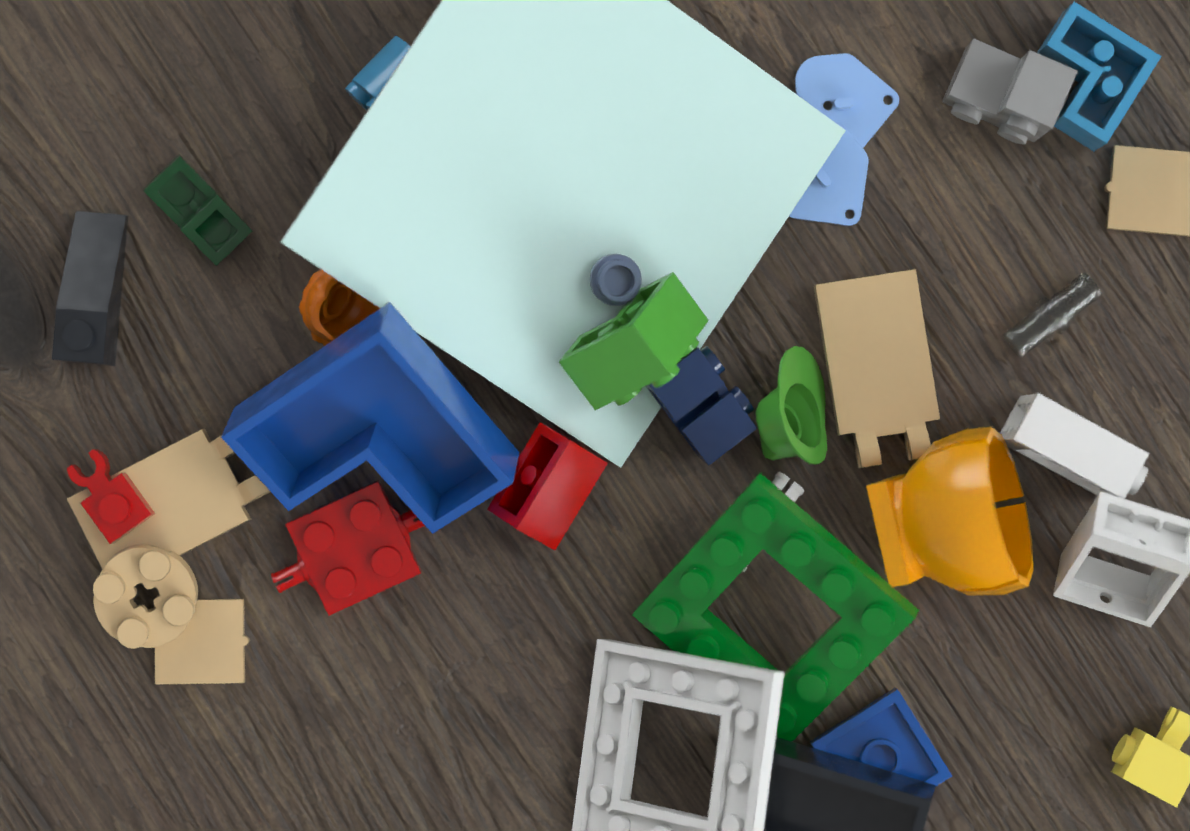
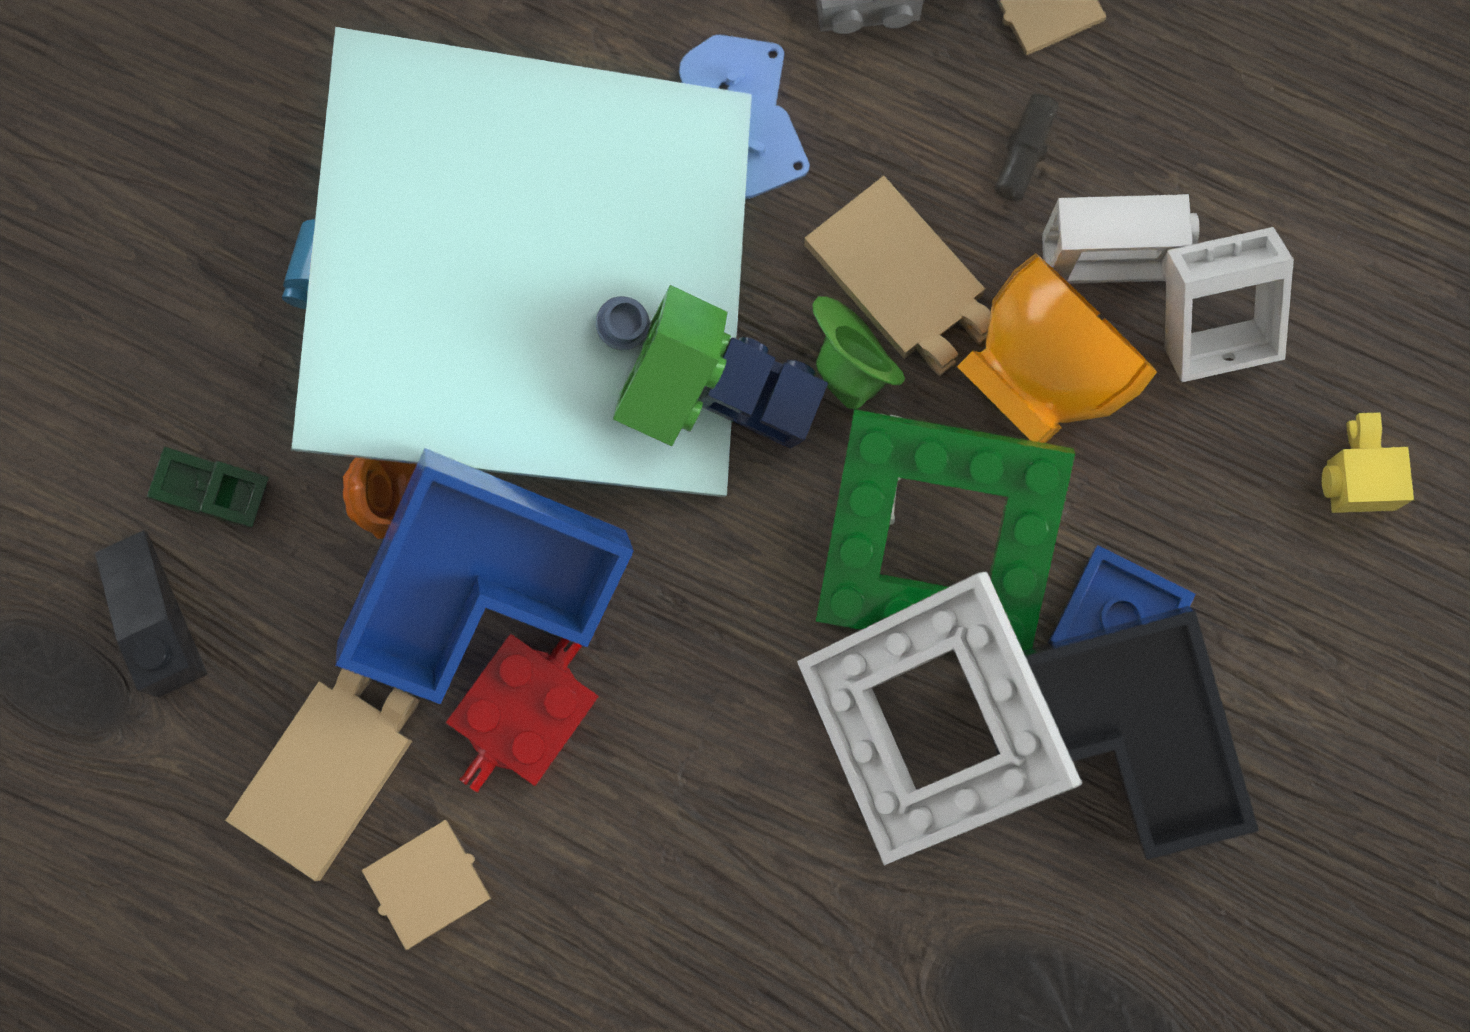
camera: 30 degrees left, 10 degrees down
(114, 503) = (271, 796): red plate -> none
(134, 623) = (317, 875): tan plate -> none
(548, 486) = (670, 545): red brick -> none

